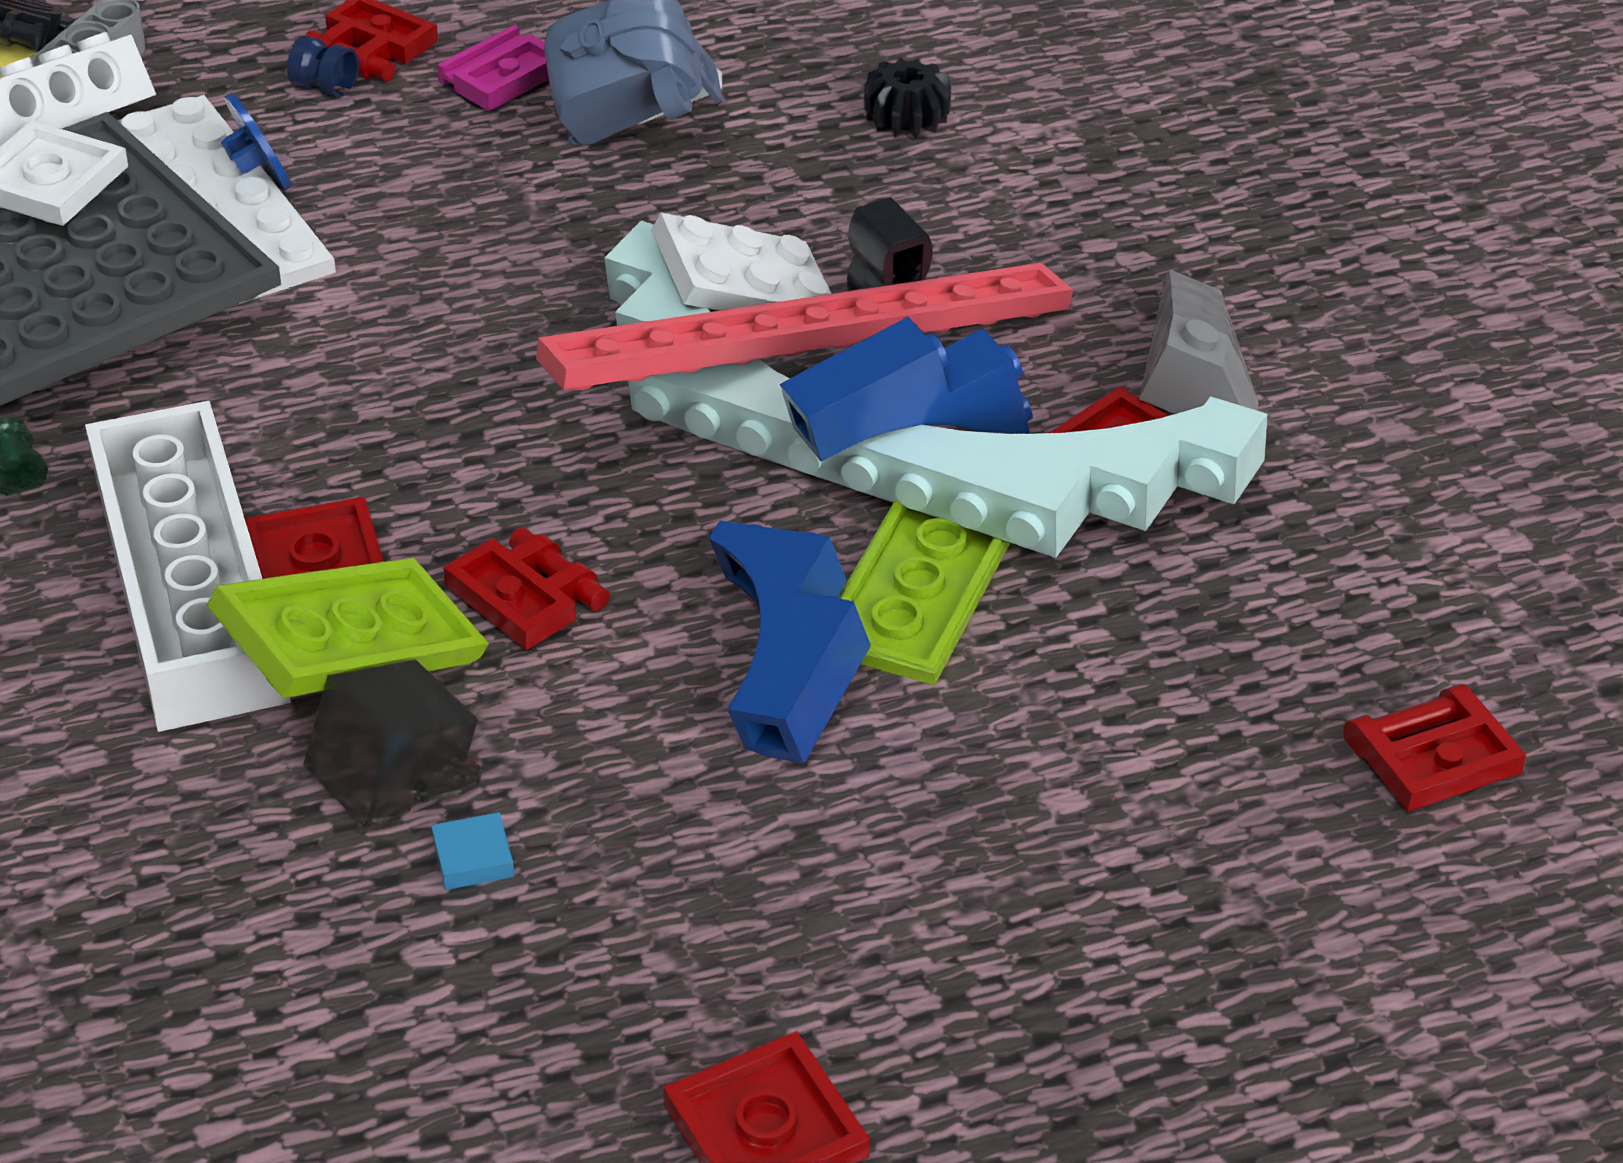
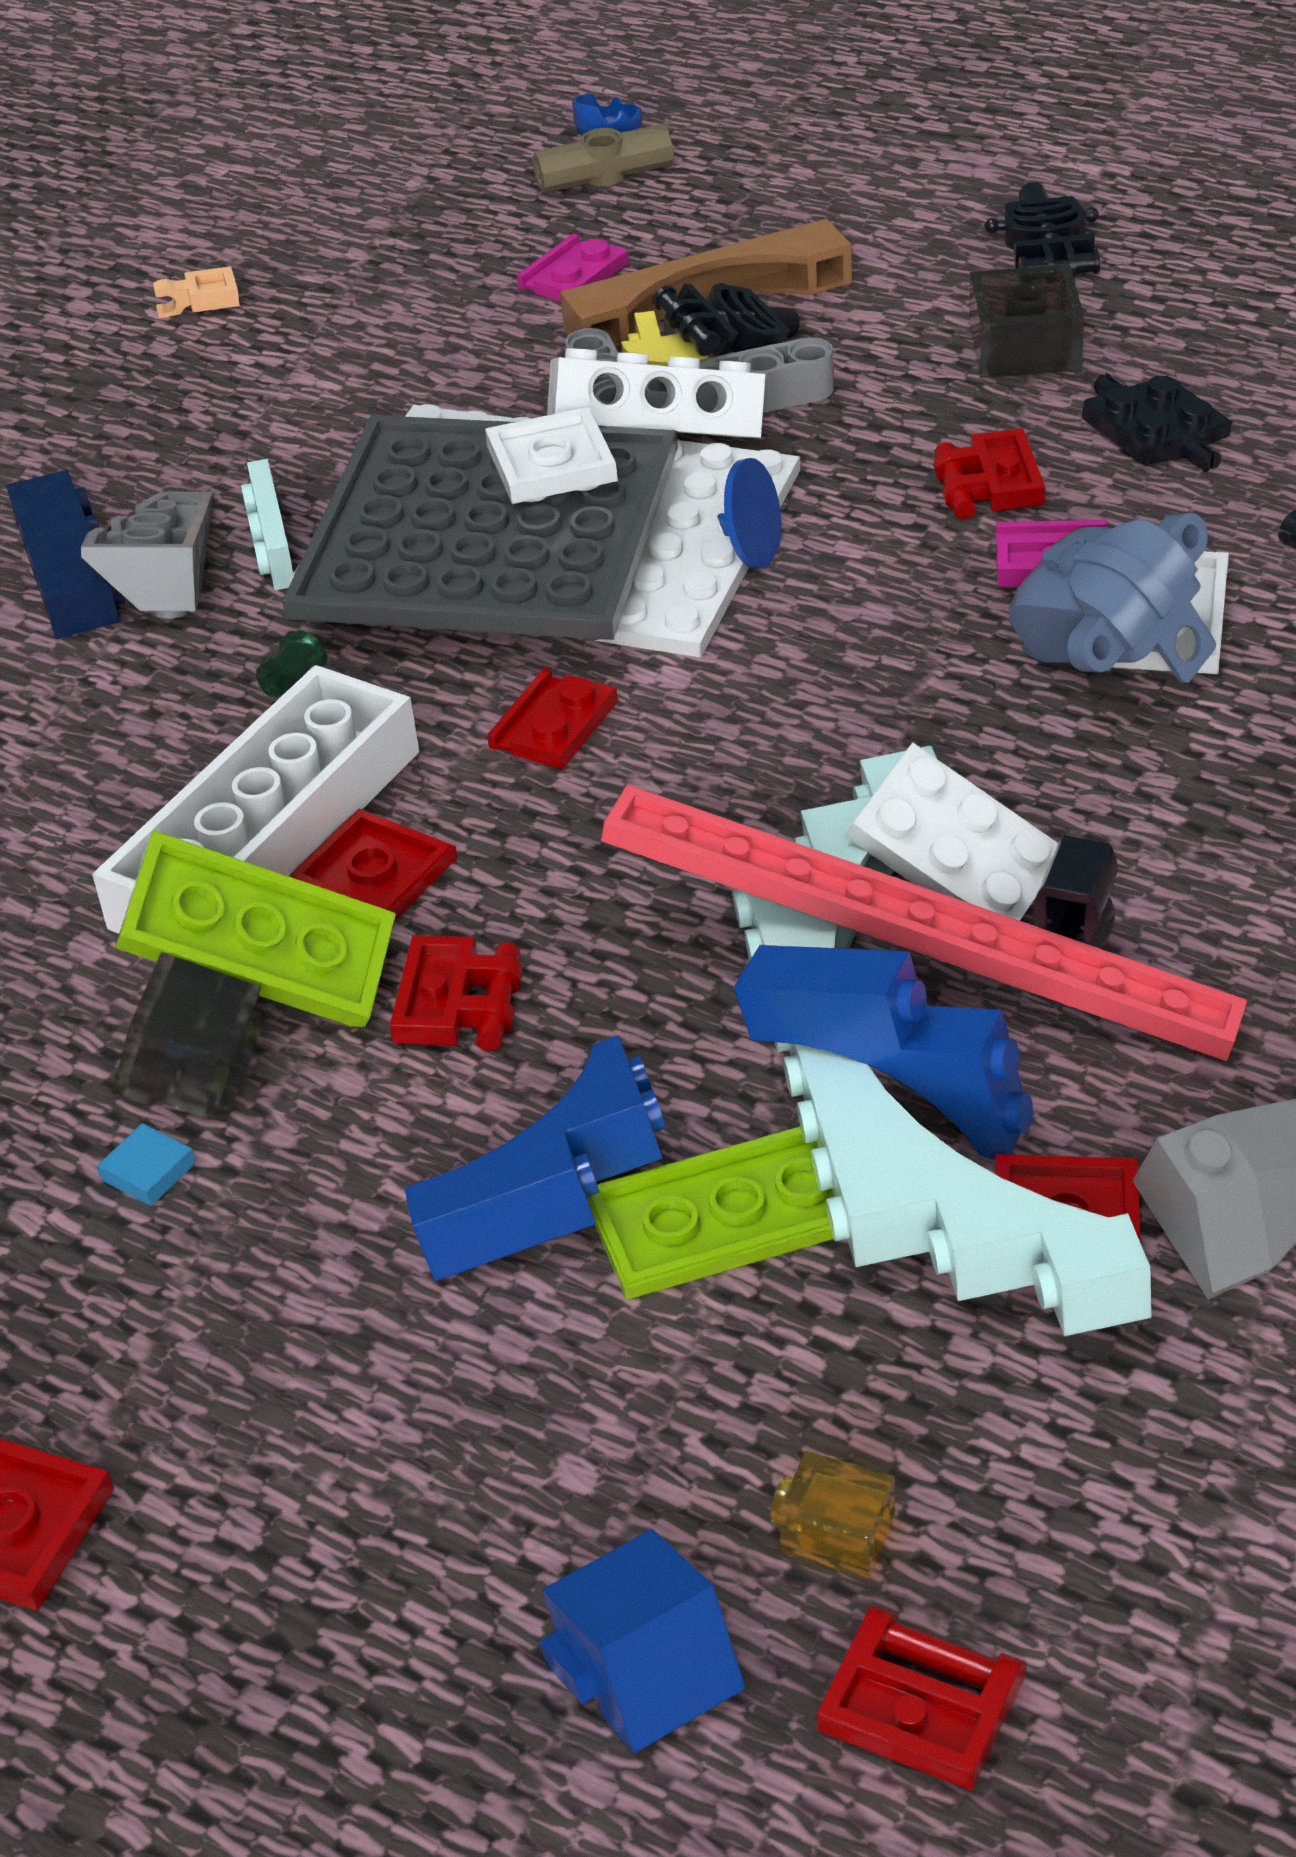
camera: 55 degrees right, 0 degrees up
(293, 373) = (553, 718): none -> red plate
(317, 65) = (911, 477): dark blue wheel -> none
(1259, 691) = (835, 1514): none -> clear yellow brick
(1272, 833) = (641, 1639): none -> blue plate

